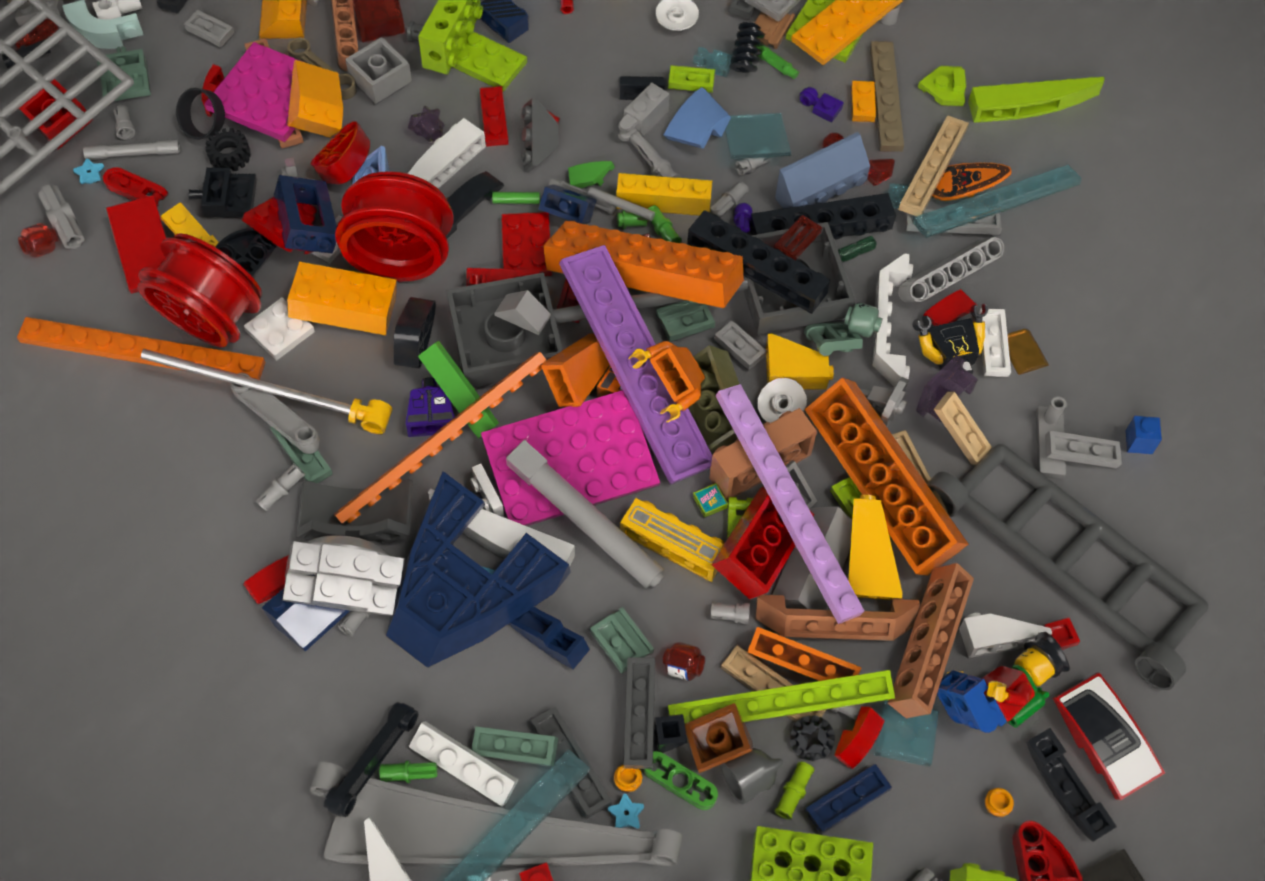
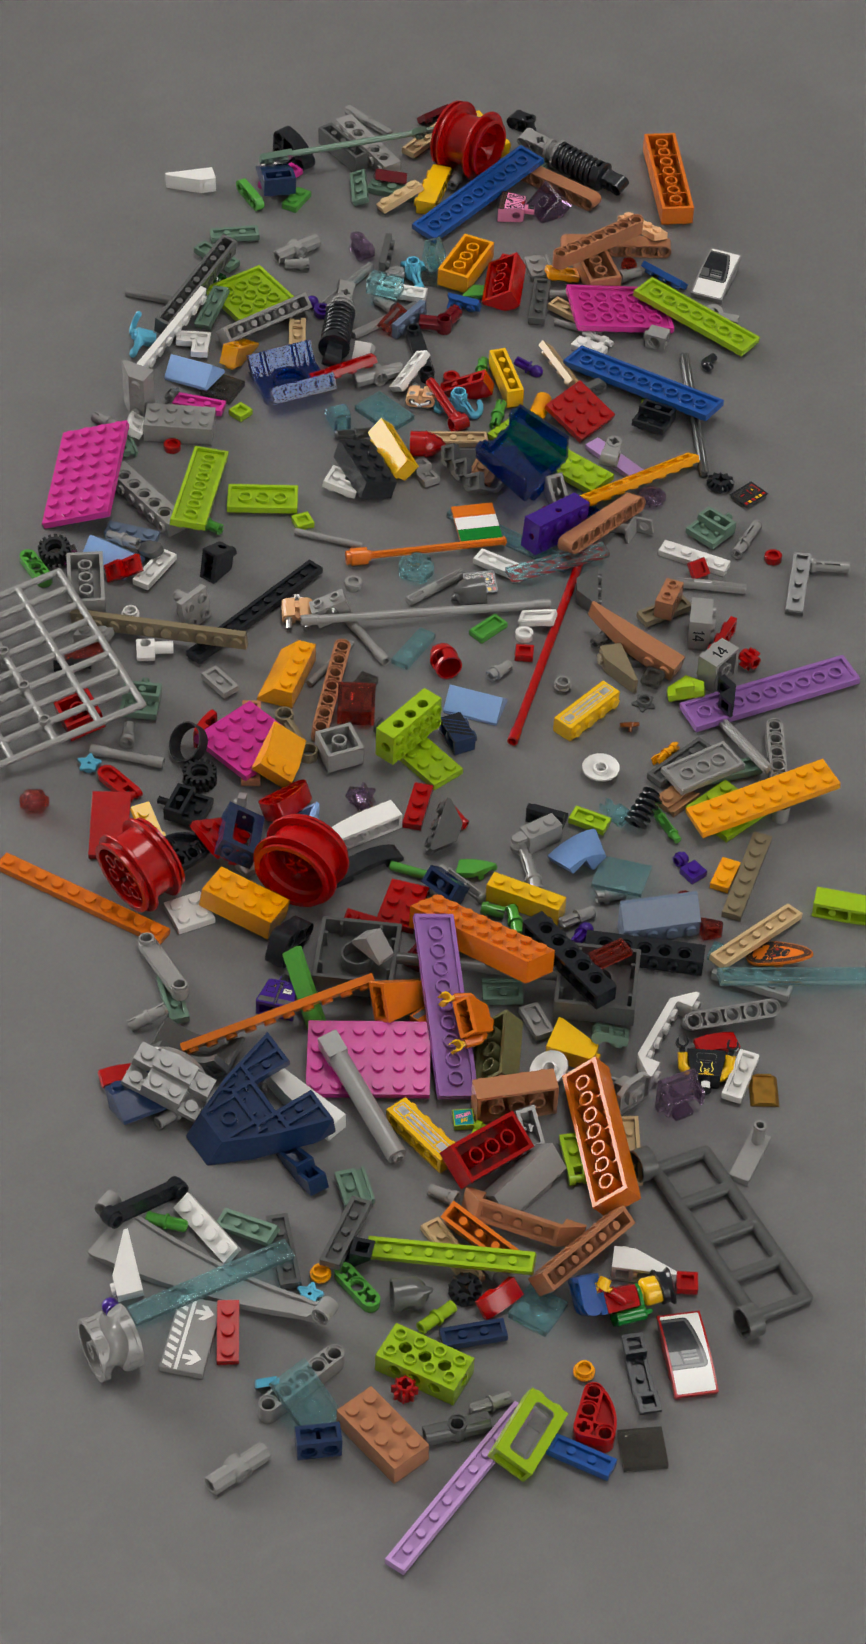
camera: 20 degrees right, 15 degrees down
(61, 216) = (56, 789): light grey piece -> none
(100, 32) = (135, 663): light aqua arch -> none
(373, 416) = (234, 990): flat silver piece -> none
(481, 483) = (295, 1057): white plate -> none
(621, 203) = (488, 895): light grey bar -> none
(684, 661) = (393, 1213): clear red head -> none
(718, 737) = (394, 1263): dark orange slope -> none
(790, 504) = (513, 1127): lavender plate -> none
(861, 247) = (659, 980): clear green piece -> none
(863, 319) = (636, 1026): sand green head -> none
(872, 560) = (563, 1187): yellow slope -> none
(946, 85) = (800, 881): lime plate -> none
(962, 428) = (677, 1121): tan plate -> none
(1083, 449) = (769, 1167): light grey plate -> none
(1143, 435) = (824, 1171): blue brick -> none

